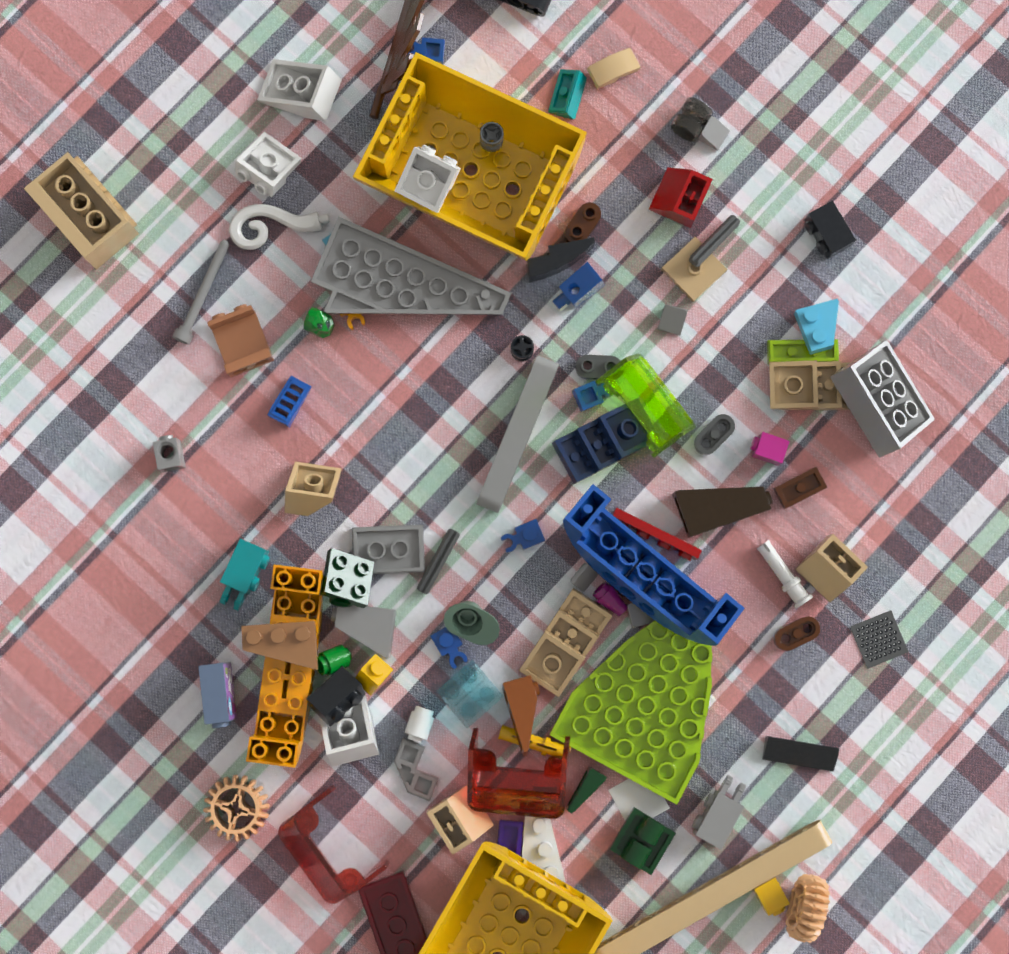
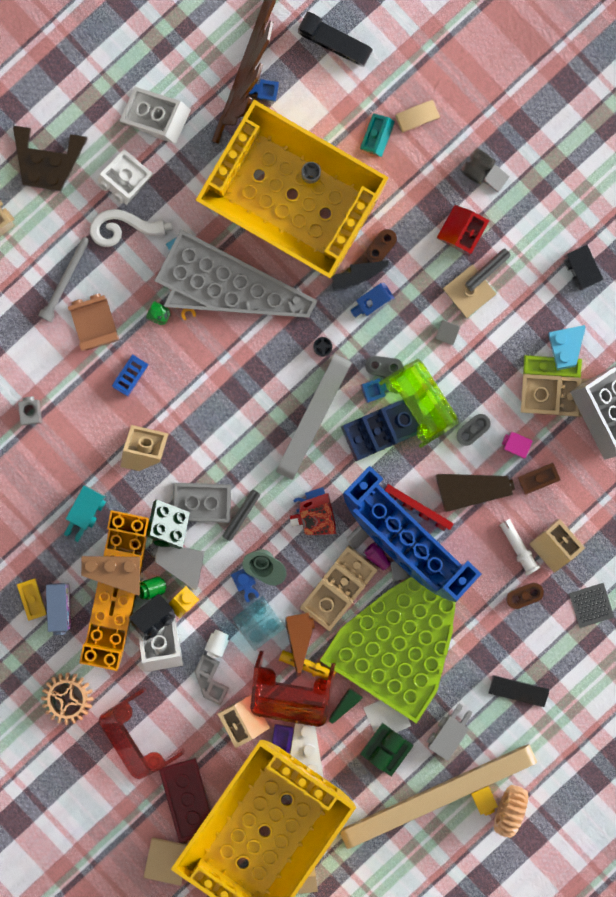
camera: 10 degrees right, 5 degrees up
(171, 162) = (42, 167): none -> dark brown wing
(184, 686) = (31, 599): none -> yellow plate
(427, 178) = (256, 208): white plate -> none
(530, 554) = (315, 516): none -> torso

